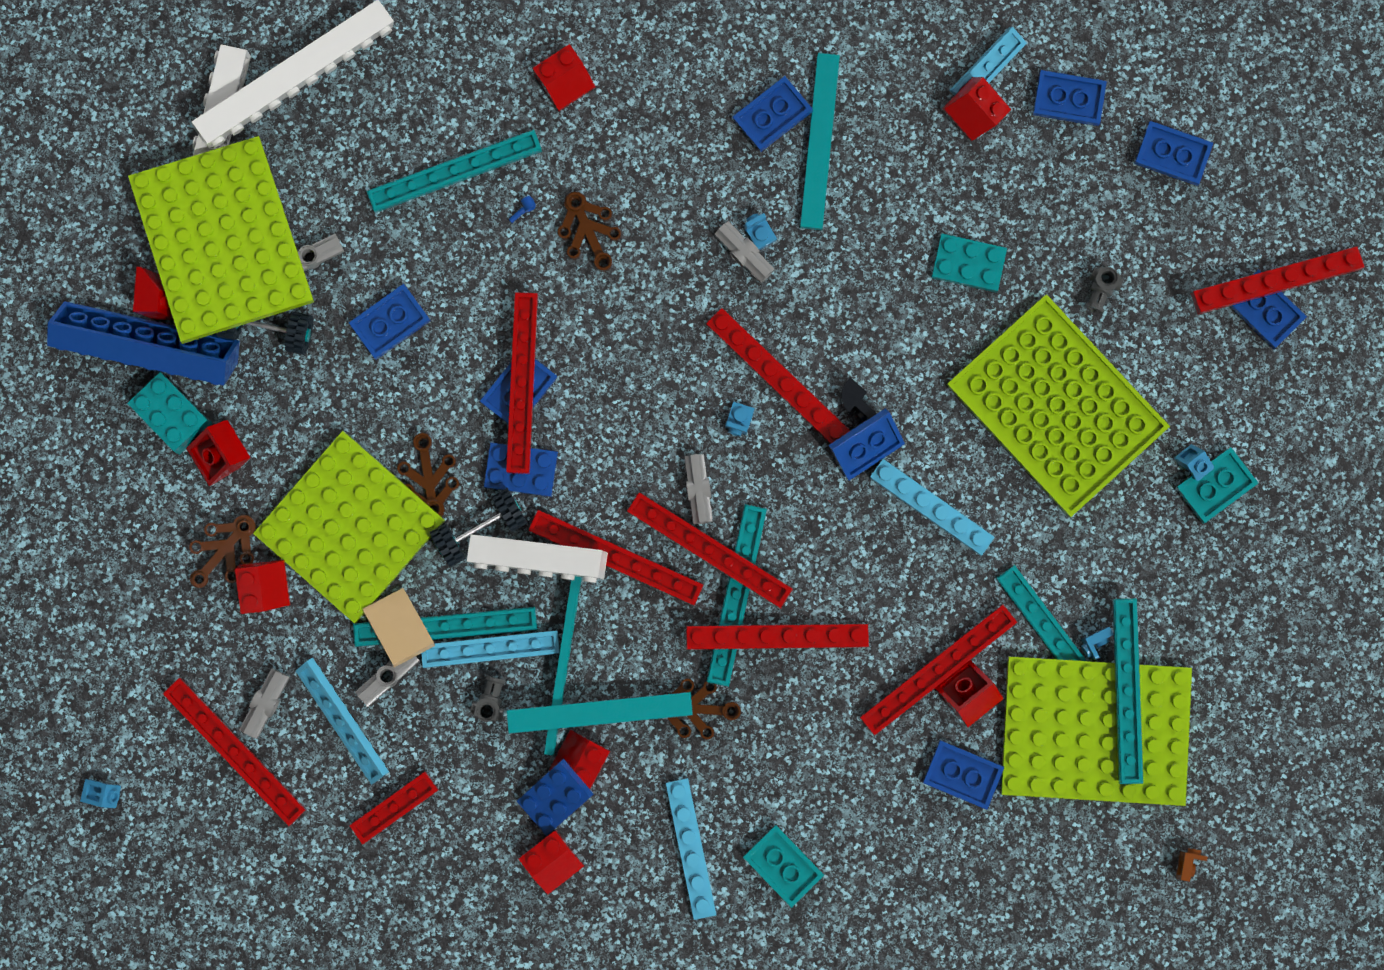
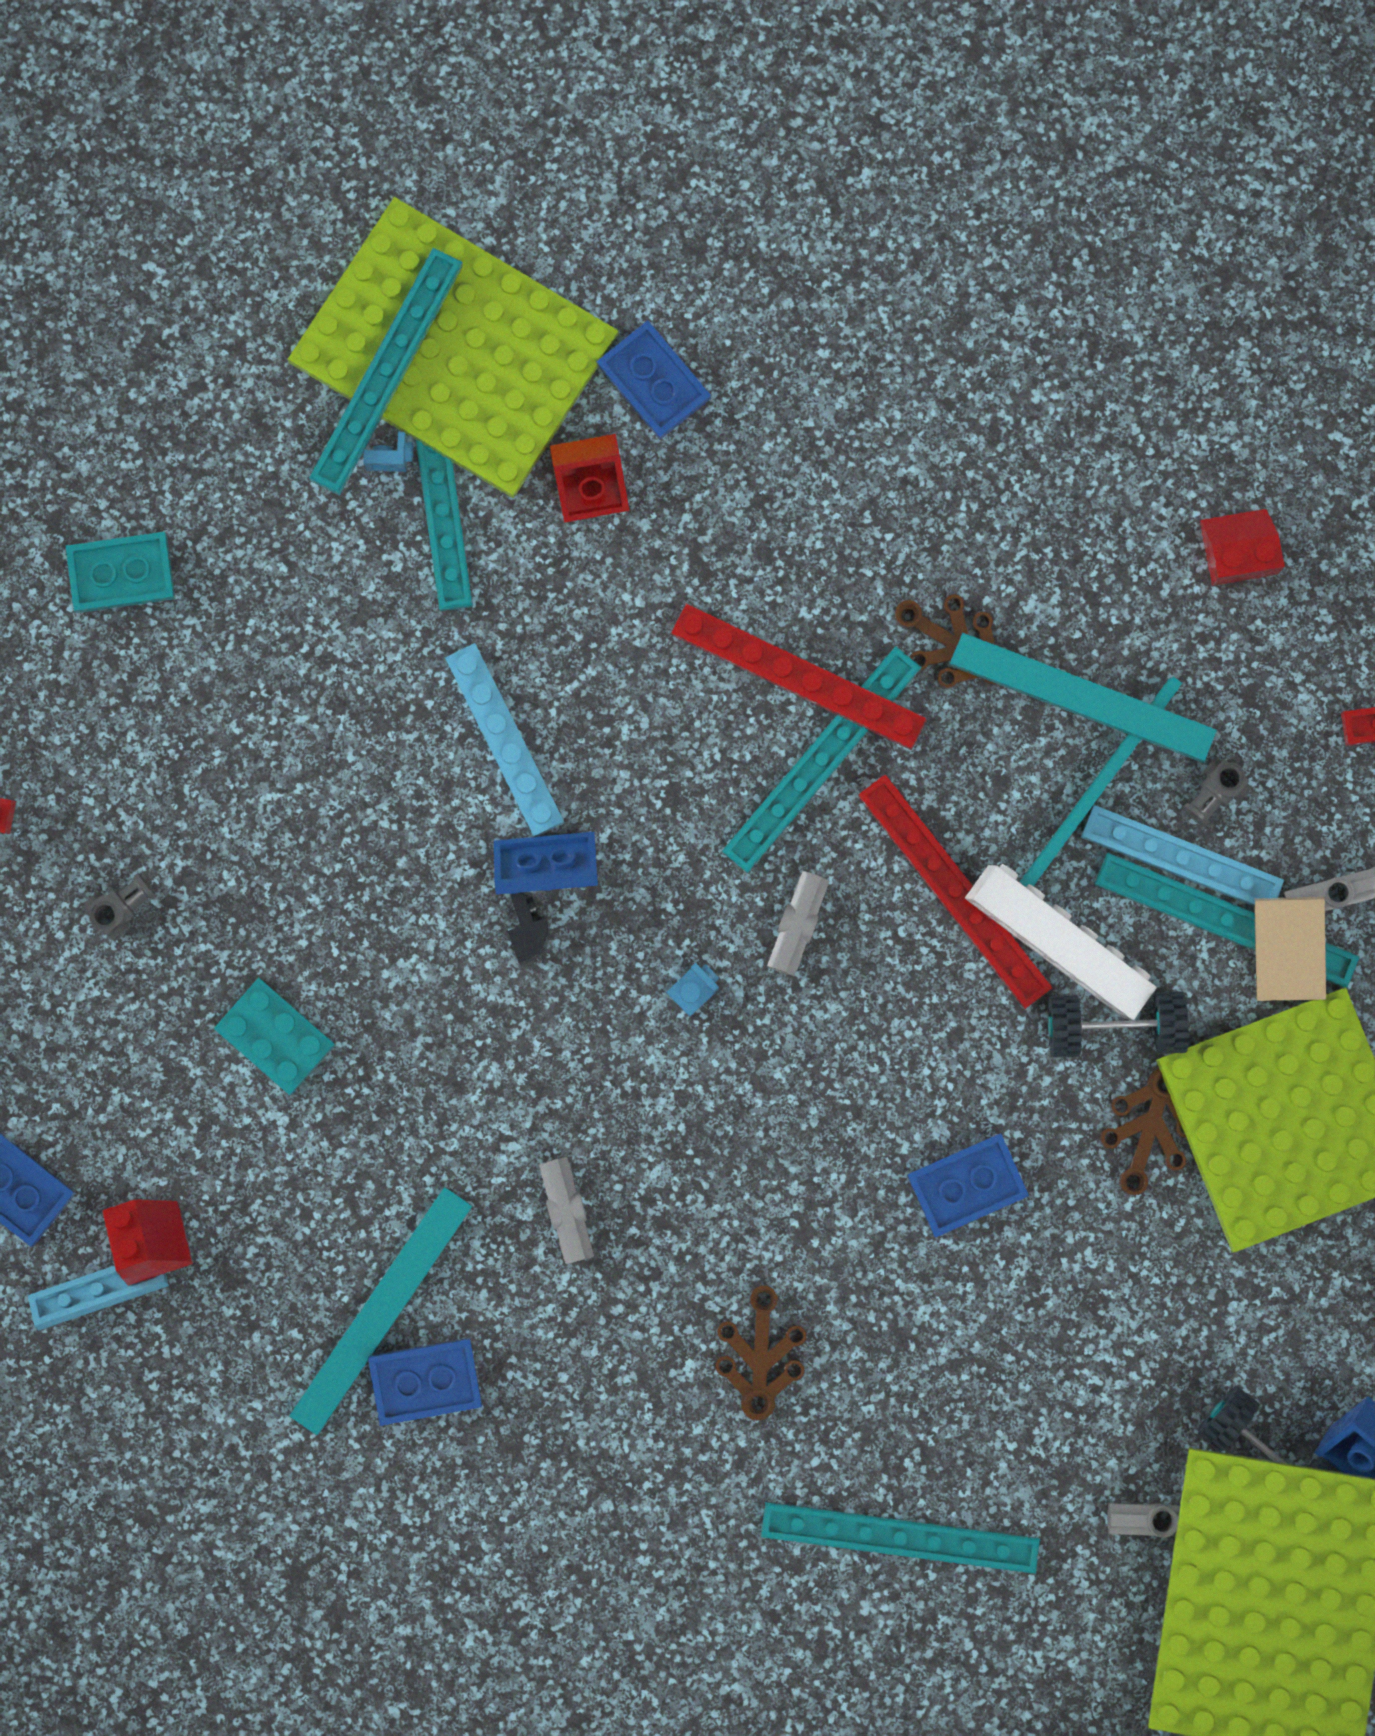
camera: 145 degrees left, 0 degrees up
(389, 321) = (1095, 1371): blue plate -> none
(522, 383) = (960, 1188): red plate -> none
(528, 205) = (823, 1434): blue hand -> none
(538, 482) = (1020, 1076): blue plate -> none
(555, 797) = (1196, 620): blue plate -> none
(563, 77) = (682, 1587): red slope -> none
(582, 756) = (1139, 652): red slope -> none
(691, 849) = (1051, 470): medium azure plate -> none
(710, 550) = (827, 833): red plate -> none
(759, 231) = (530, 1228): dark azure bracket -> none
(777, 376) = (612, 1017): red plate -> none
(783, 866) = (945, 386): teal plate -> none
(938, 670) = (612, 527): red plate -> none
(1058, 406) = (266, 784): lime plate -> none
(1186, 867) = (435, 124): dark orange bracket -> none
(1195, 461) = (131, 616): dark azure bracket -> none

